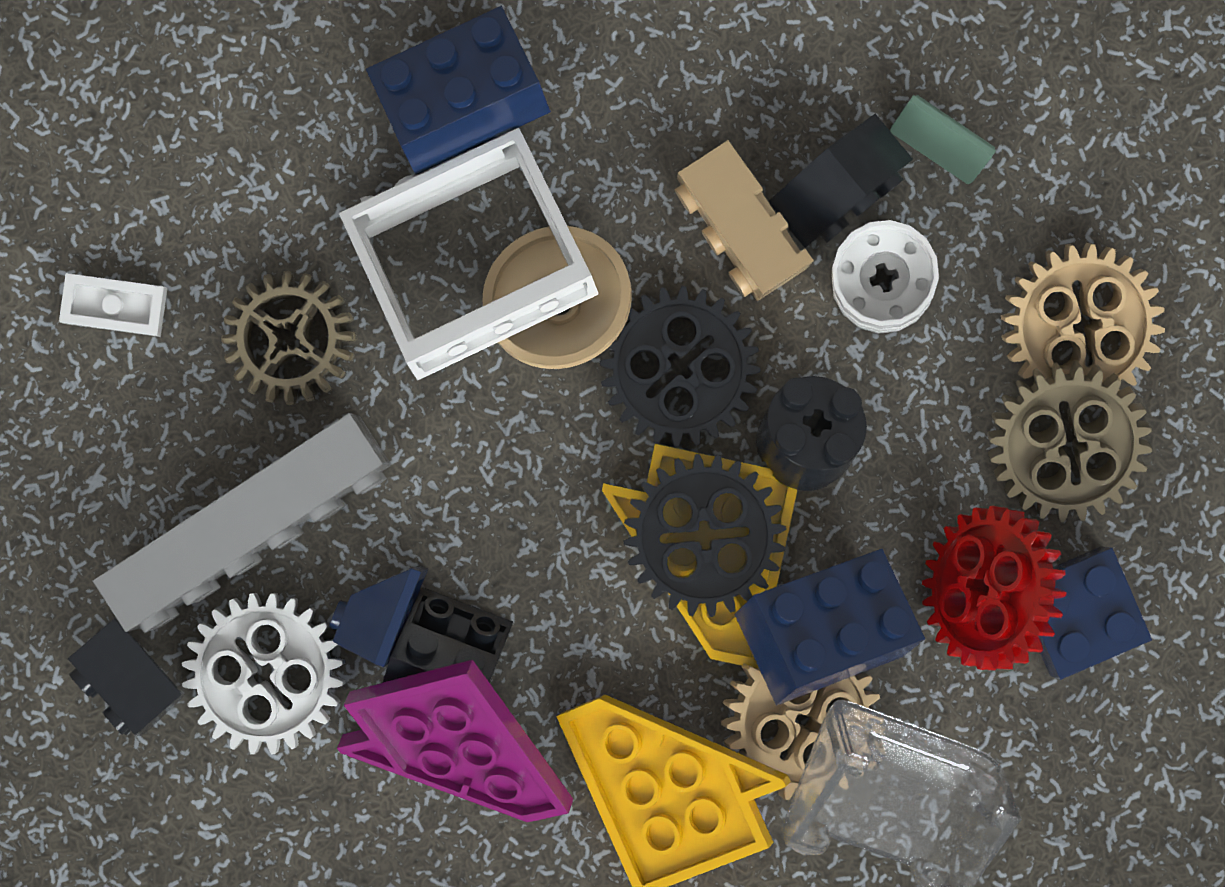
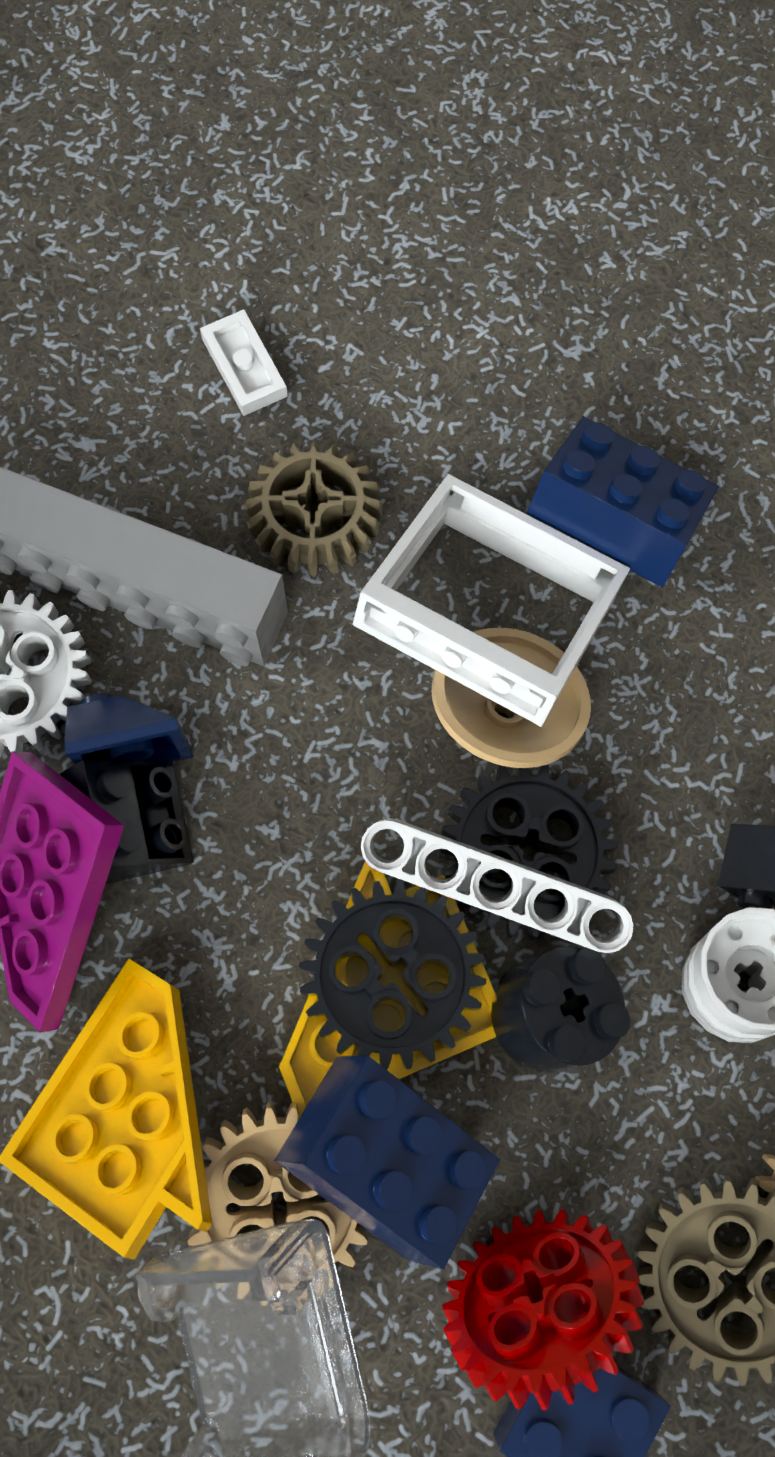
camera: 50 degrees right, 15 degrees down
(718, 414) = (517, 904): none -> white beam
(741, 222) = (696, 816): tan wedge -> none

